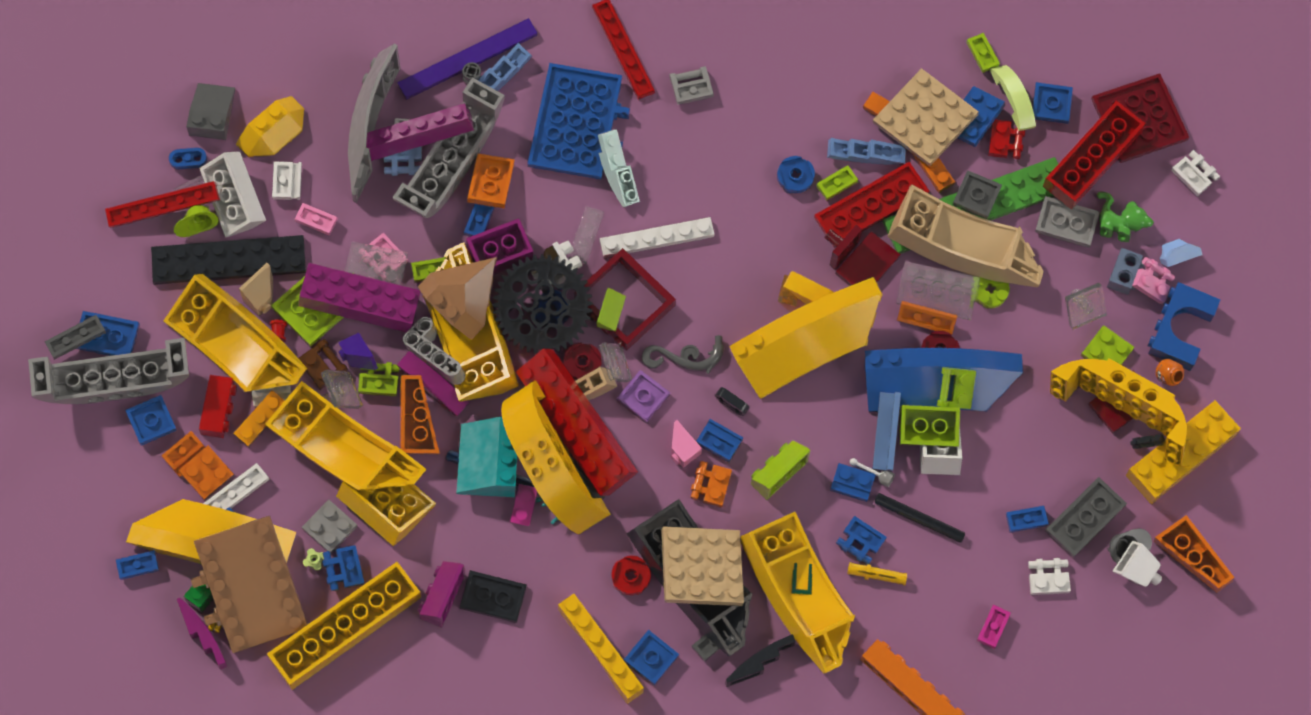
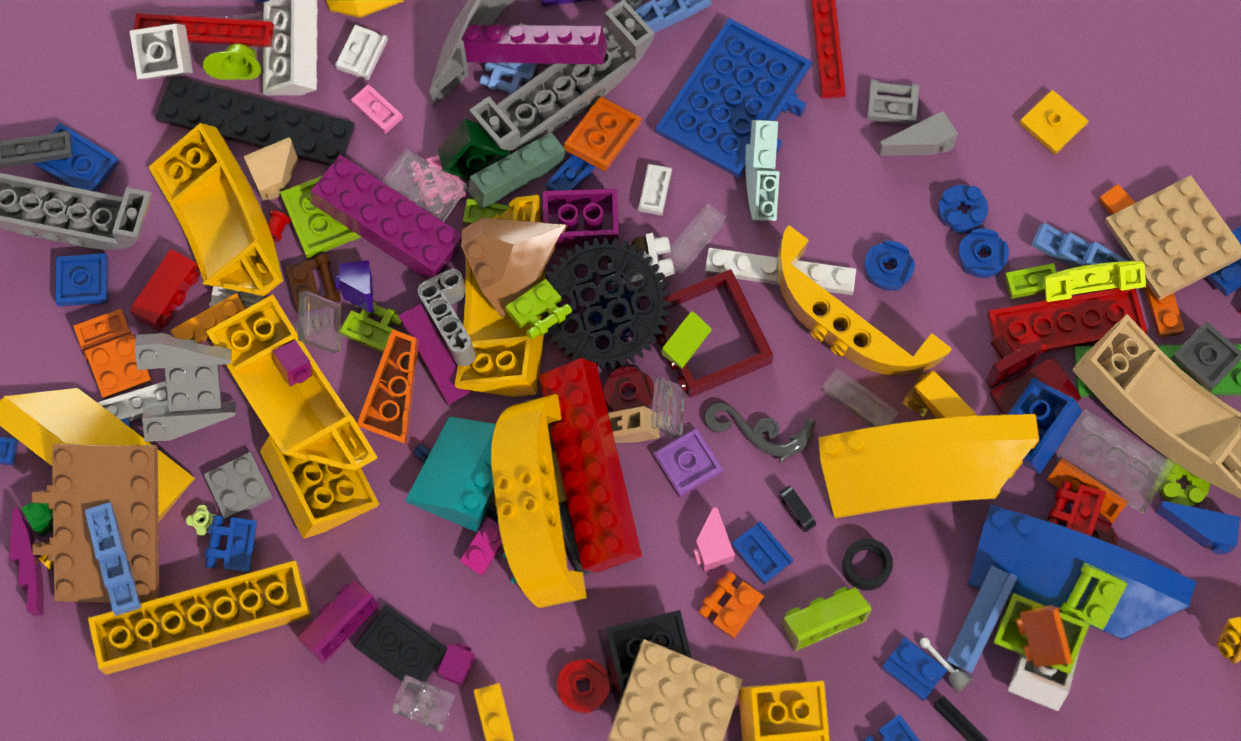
camera: 25 degrees right, 0 degrees up
(139, 231) = (161, 51): none -> white brick
(268, 605) = (113, 558): none -> medium blue slope
(270, 468) = (190, 383): none -> light grey wedge
(335, 425) = (292, 363): none -> magenta brick
(402, 228) = (469, 150): none -> dark green slope
(439, 229) = (516, 170): none -> sand green brick
(494, 320) = (533, 304): none -> lime plate
(526, 626) = (423, 703): none -> clear brick
(537, 592) = (457, 664): none -> magenta brick
(544, 209) = (655, 189): none -> white plate
(723, 105) = (923, 138): none -> light grey slope
(729, 216) = (889, 279): none -> blue plate
(747, 270) = (877, 350): none -> yellow slope
(747, 310) = (859, 399): none -> clear plate
(760, 142) = (969, 196): none -> blue plate
(798, 408) = (875, 546): none -> black tyre
(811, 61) = (1053, 122): none -> yellow plate
(879, 166) = (1094, 278): none -> neon yellow slope
(887, 273) = (1054, 417): none -> blue slope
(930, 331) = (1084, 511): none -> red plate
(932, 426) = (1044, 637): none -> orange slope
(1014, 314) = (1206, 527): none -> blue slope

